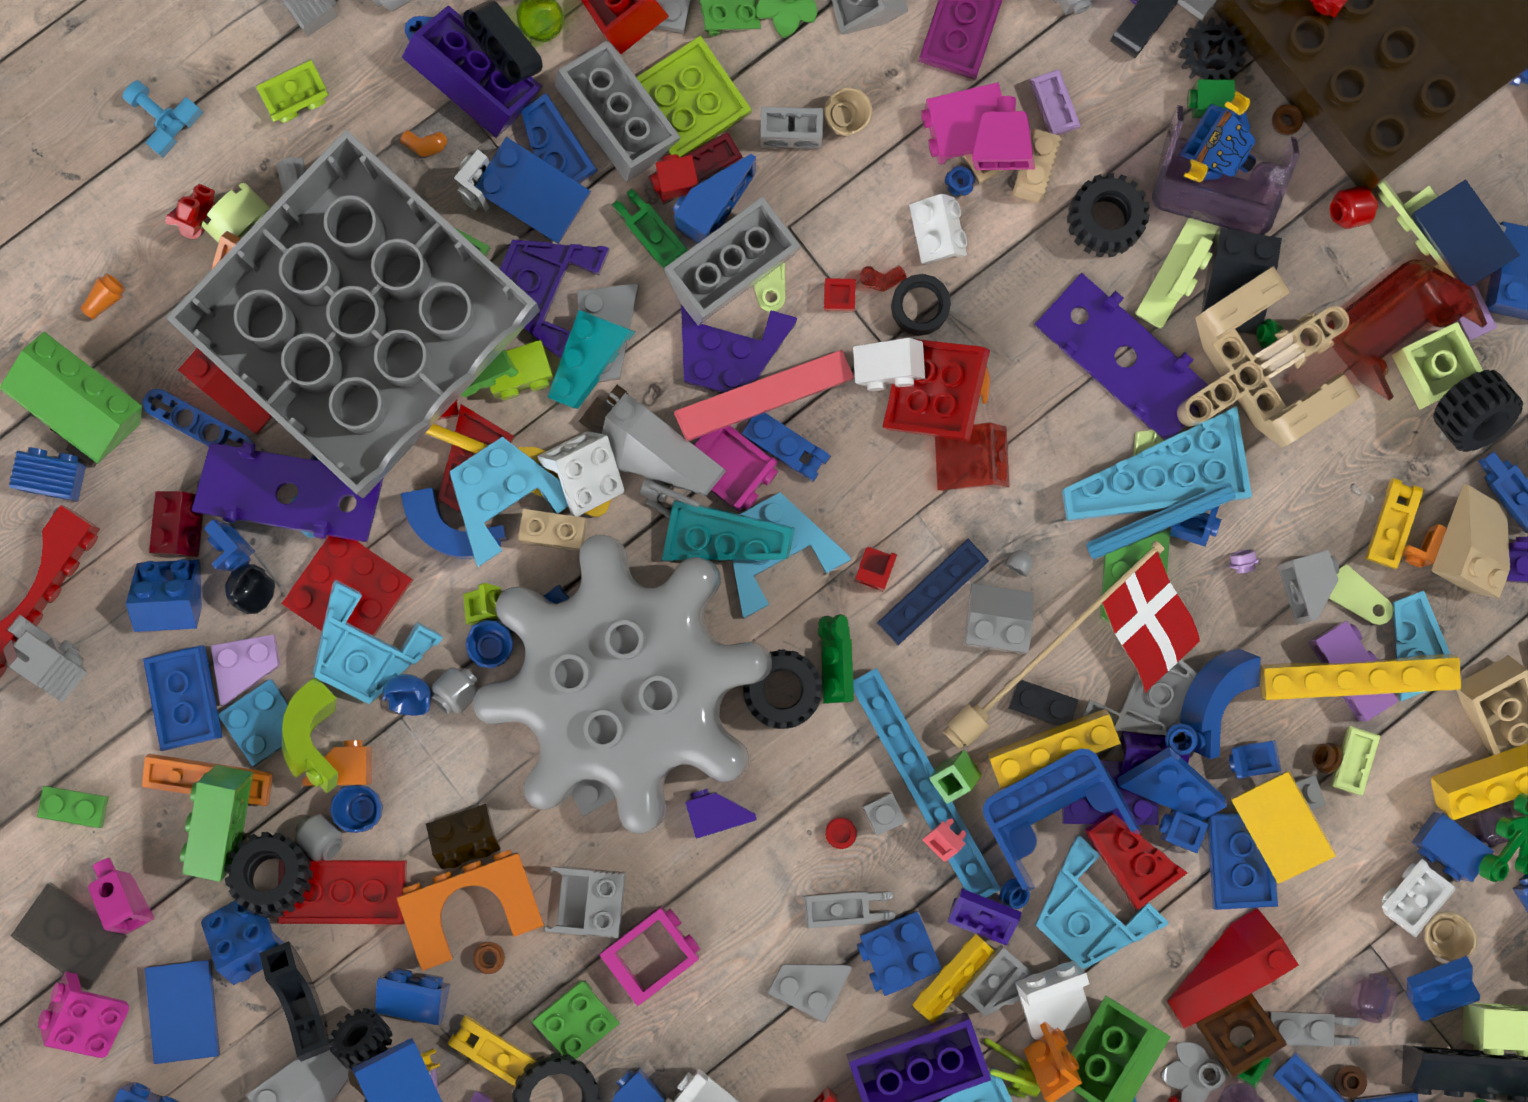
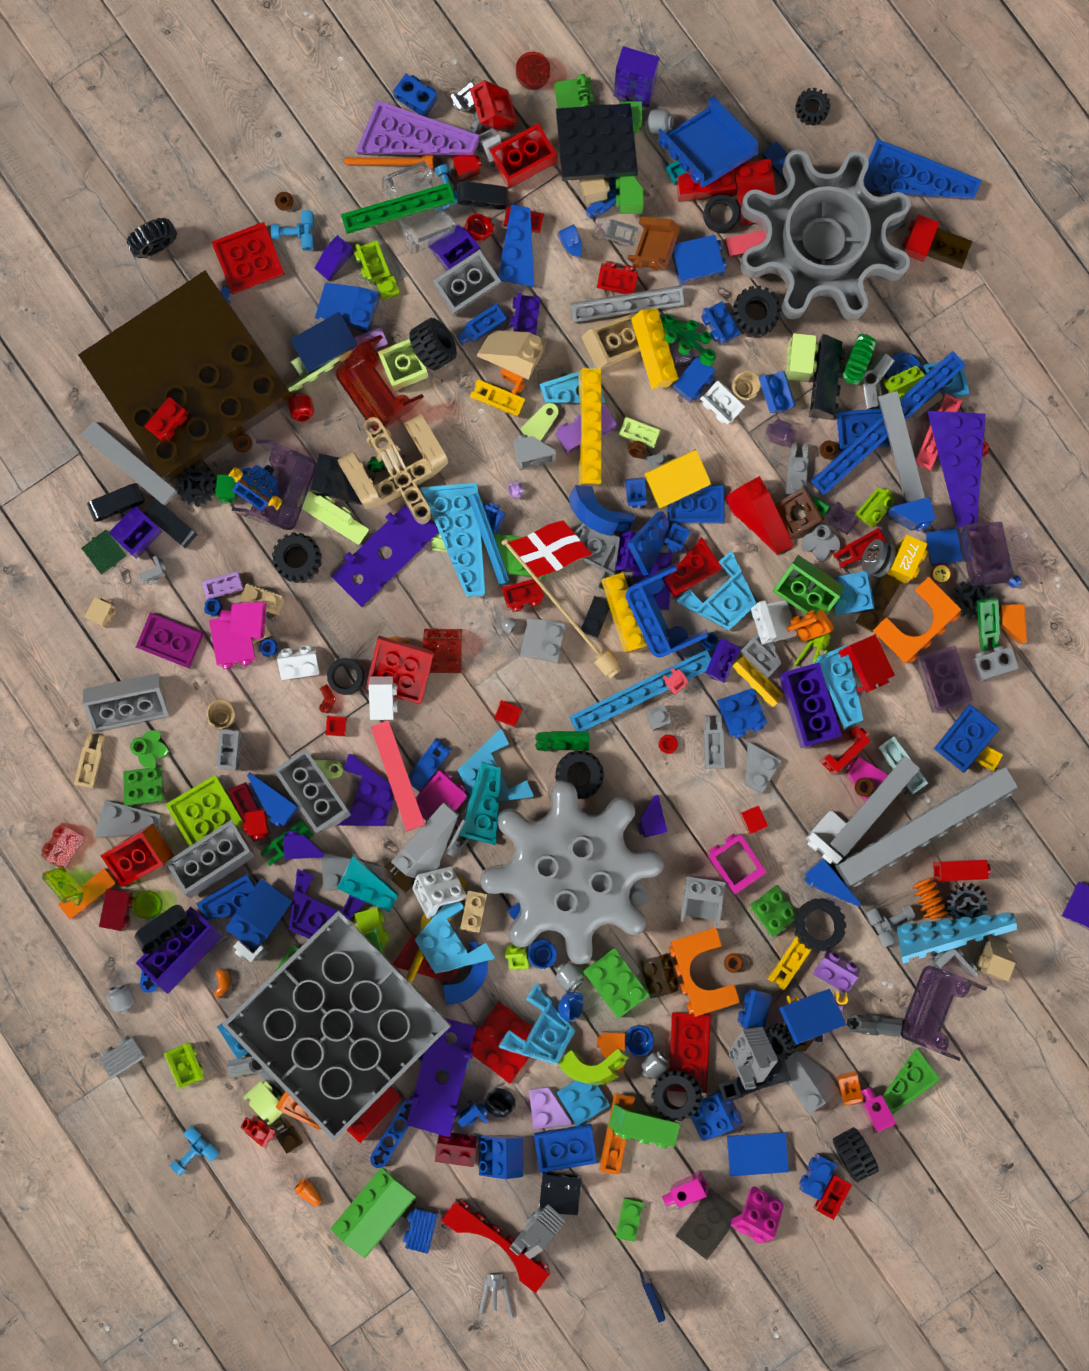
camera: 85 degrees left, 0 degrees up
(111, 693) = (560, 1192): none -> black bracket
(186, 261) = (288, 1137): none -> dark brown plate
(333, 996) = (752, 1056): none -> light grey piece
(447, 766) = (615, 982): none -> bright green brick
(643, 248) = (300, 846): none -> dark purple slope
(723, 981) = (753, 819): none -> red panel
(933, 592) = (524, 679): dark blue tile -> none
(955, 776) = (637, 672): bright green brick -> none
(1022, 83) = (208, 607): none -> blue plate
(1071, 582) = (523, 594): none -> red bracket
(1184, 744) = (625, 534): blue cone -> none

